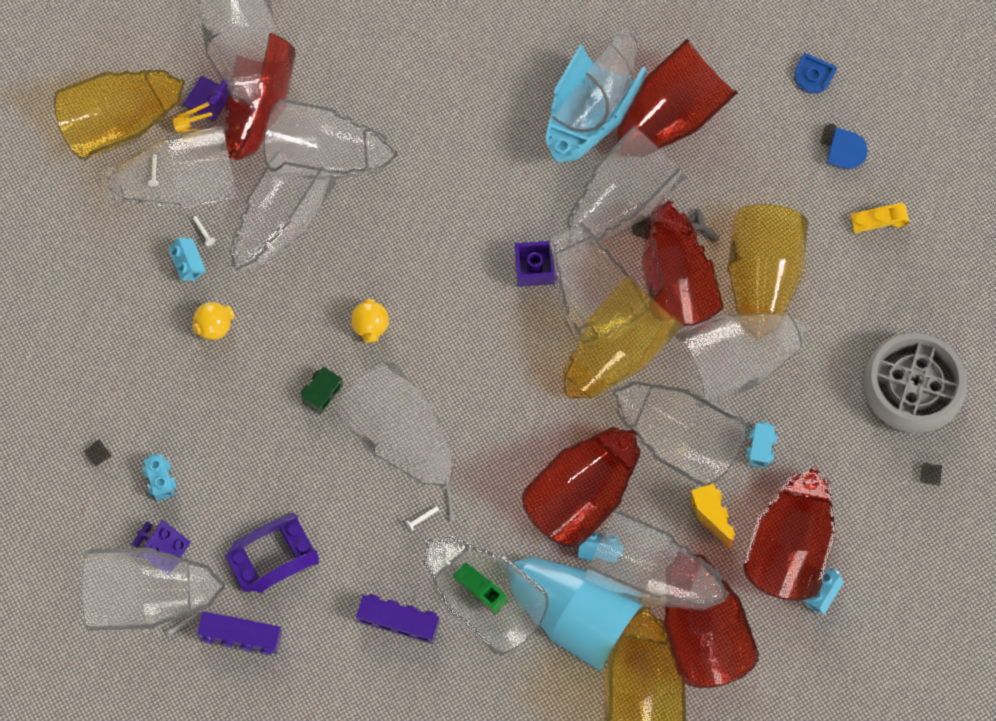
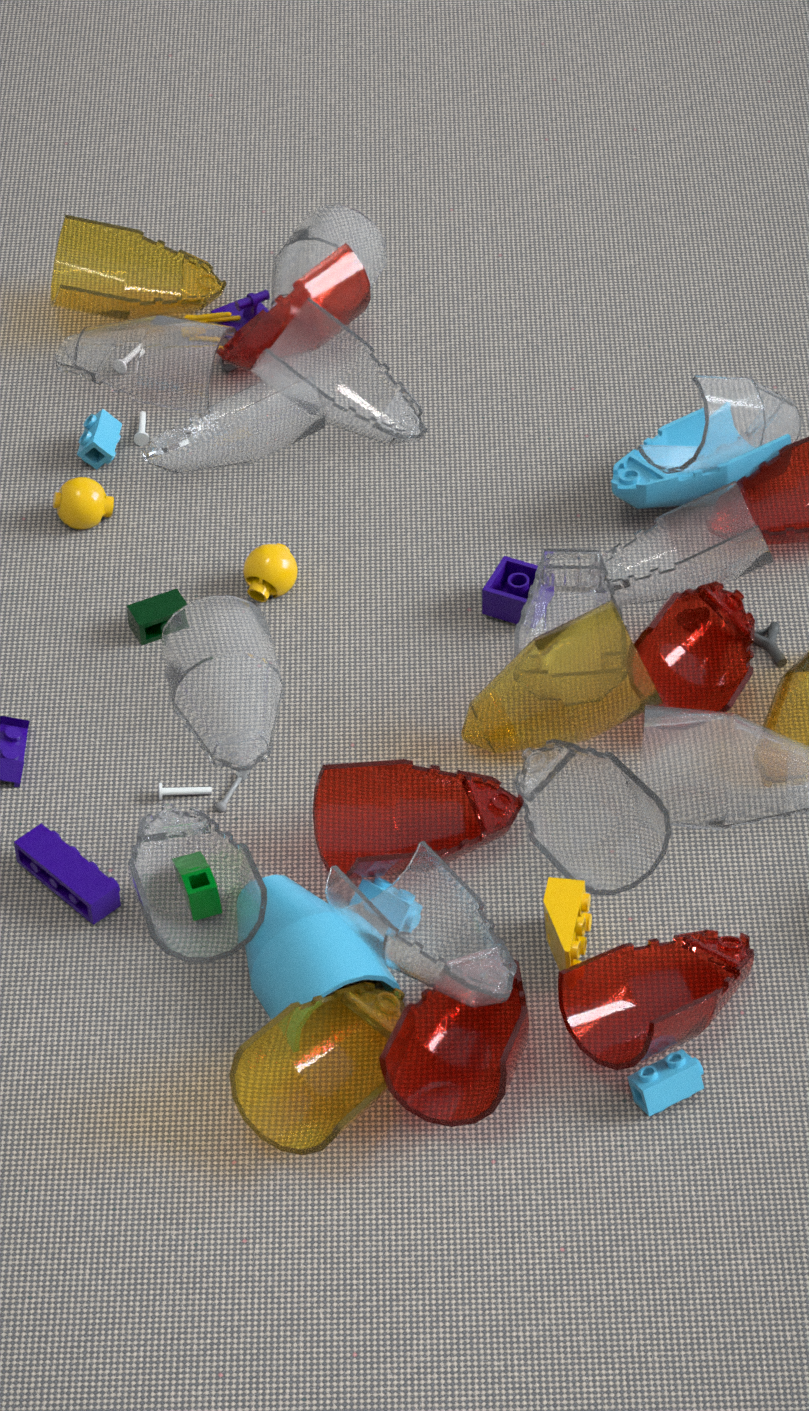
camera: 30 degrees right, 25 degrees down
(762, 440) = (689, 888): medium azure brick -> none

